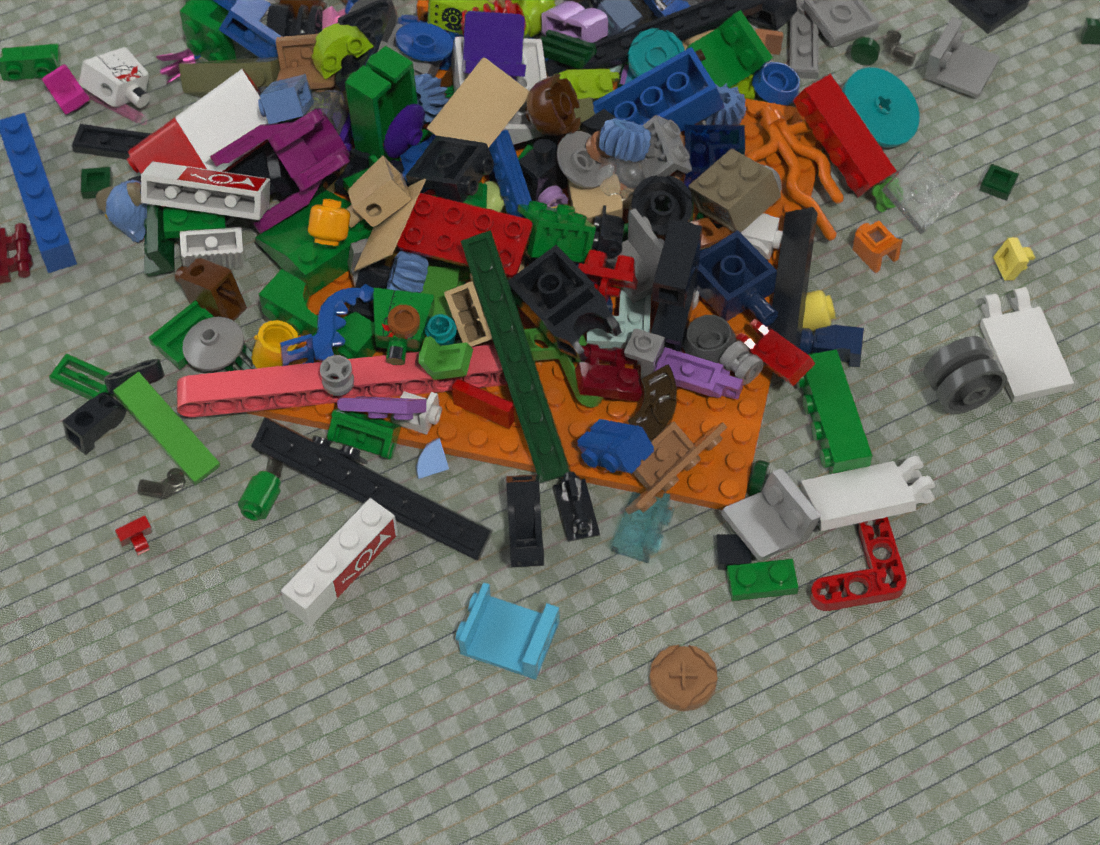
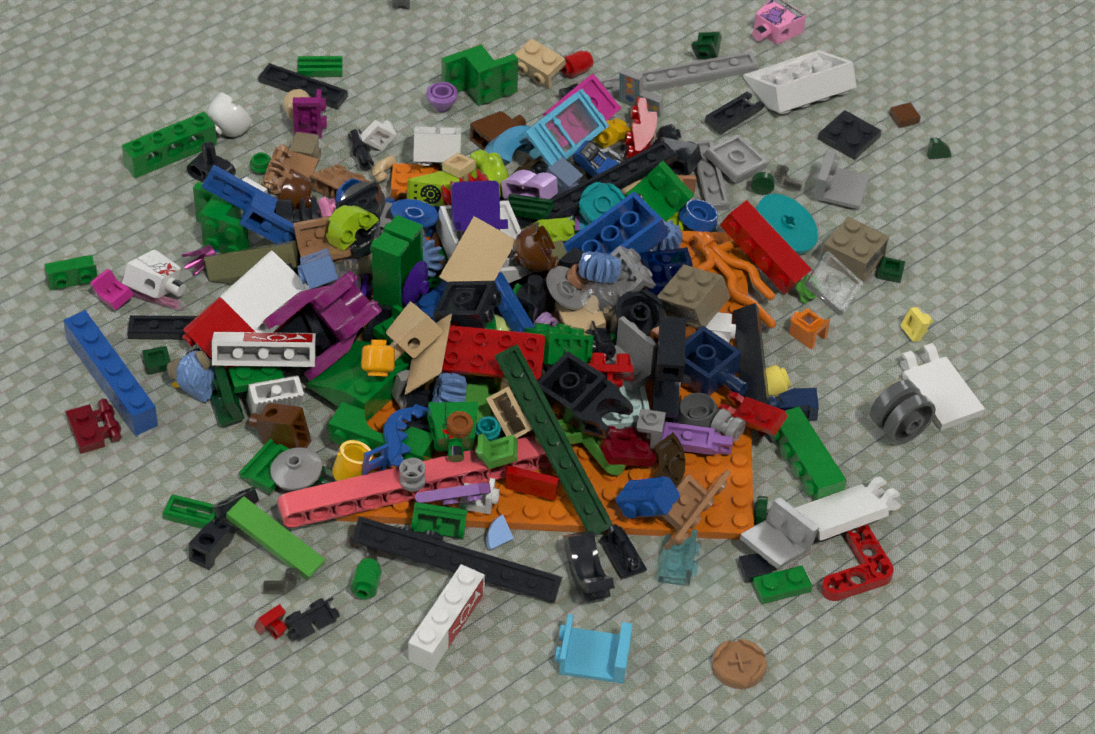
camera: 15 degrees left, 10 degrees down
(169, 539) = (319, 612): none -> black hinge
(960, 149) = (857, 247): none -> dark tan piece

